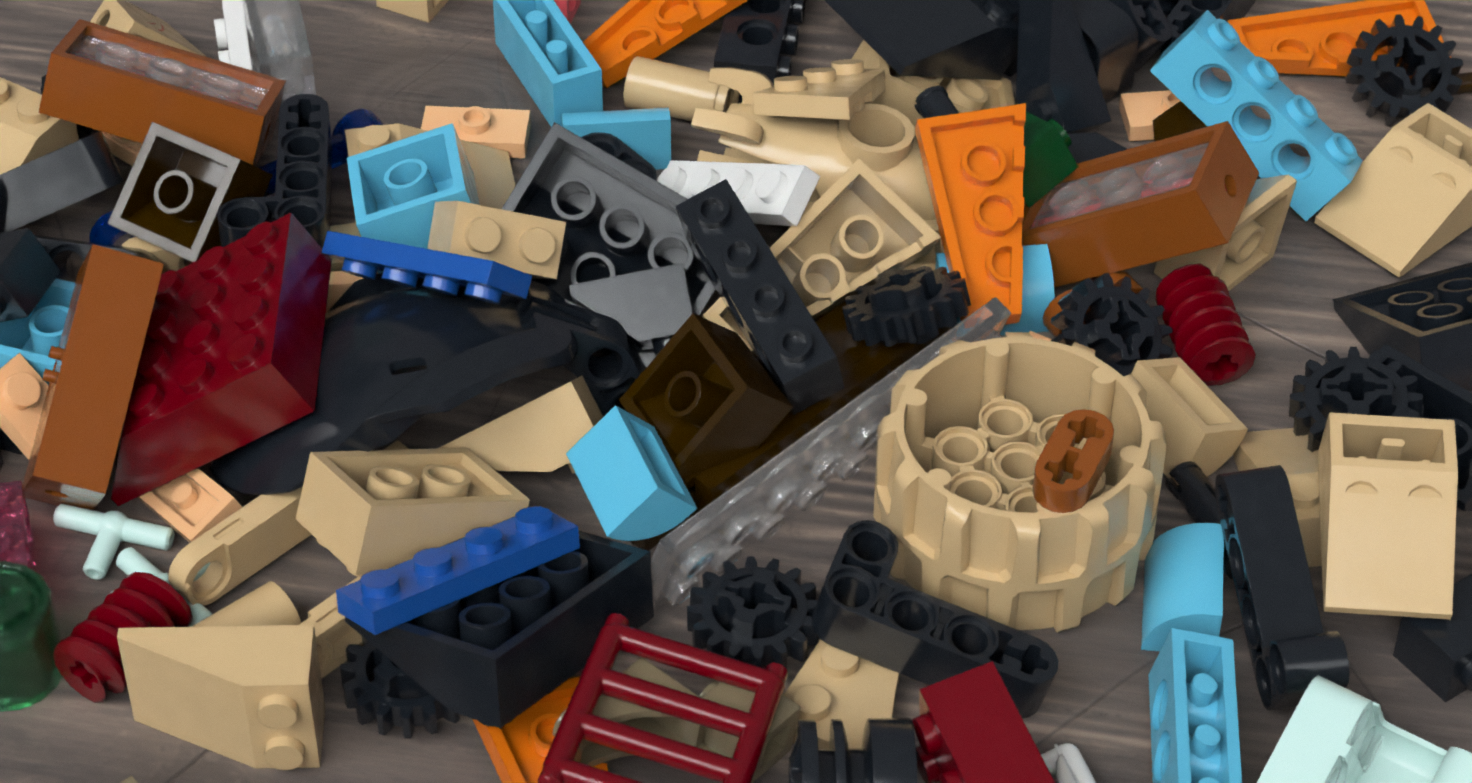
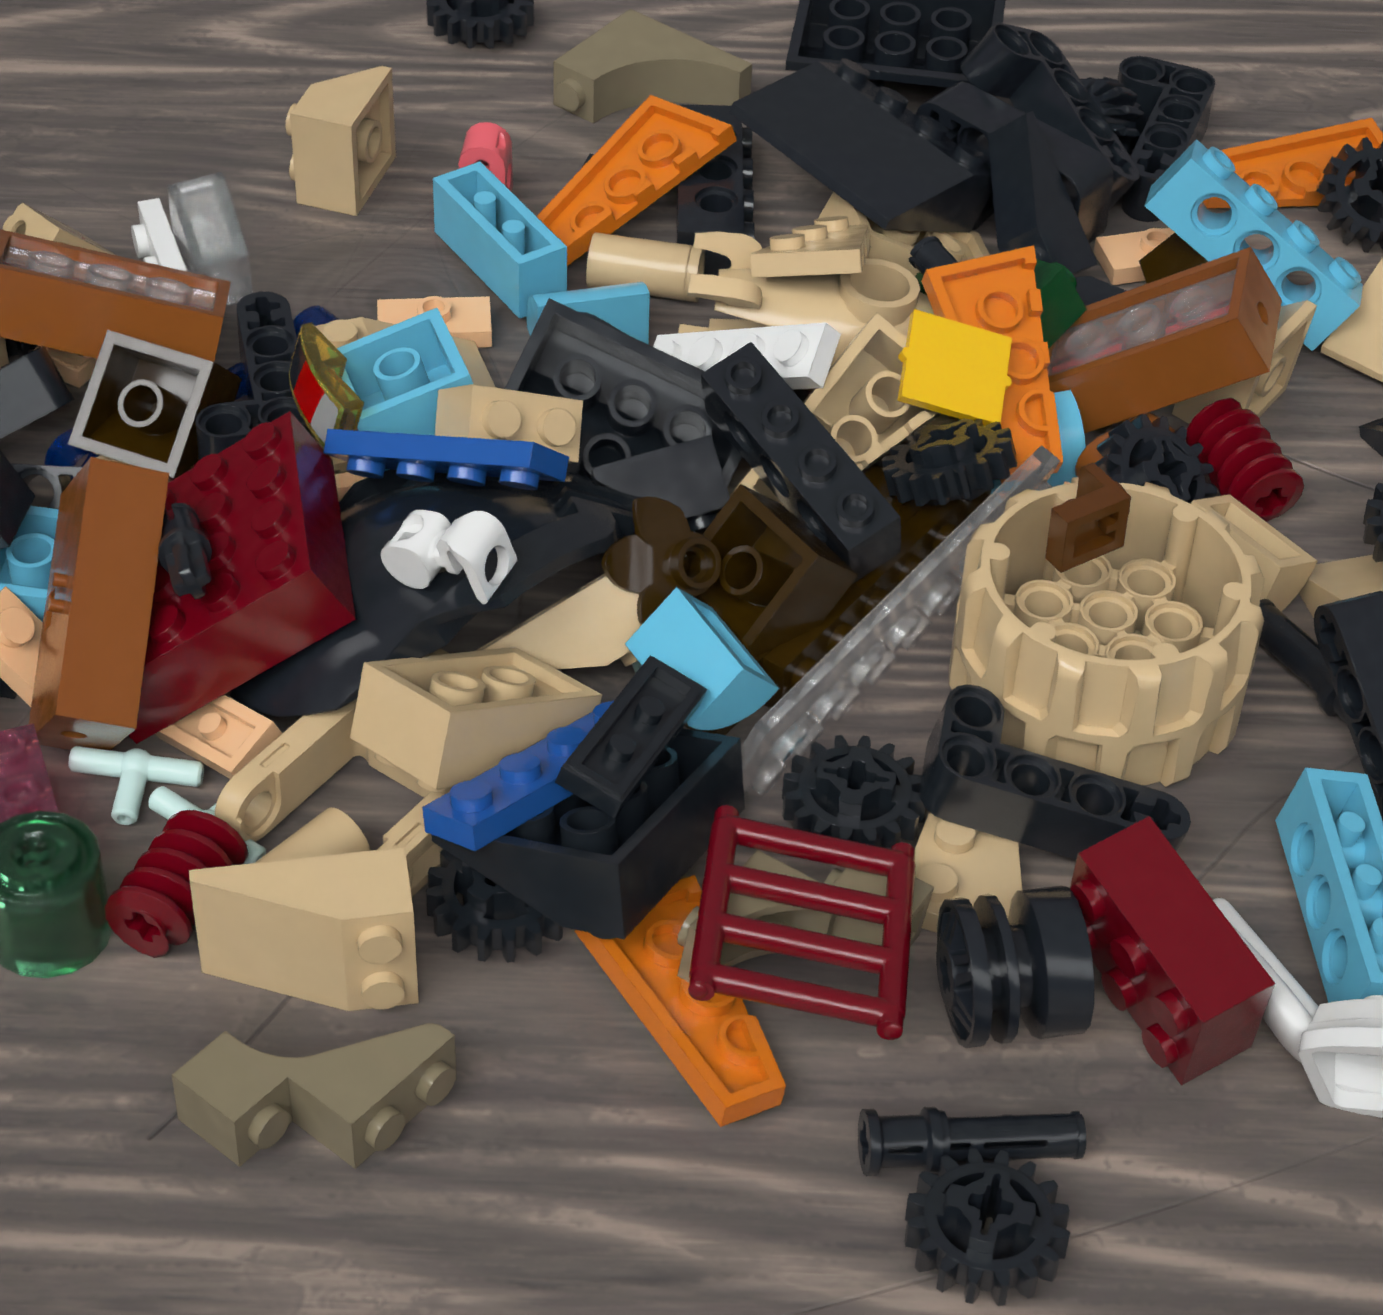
camera: 10 degrees left, 0 degrees up
(168, 335) = (185, 551): none -> black axle
(331, 186) = (318, 385): none -> slope
(390, 348) = (431, 542): none -> white leg
(540, 541) = (631, 736): none -> black tile
(600, 375) = (654, 556): none -> dark brown plate
(927, 217) = (954, 368): none -> yellow piece
(1002, 378) = (1090, 522): none -> reddish brown bracket
(1061, 457) = (1170, 599): dark orange beam -> none
(1183, 583) = (1289, 726): medium azure brick -> none

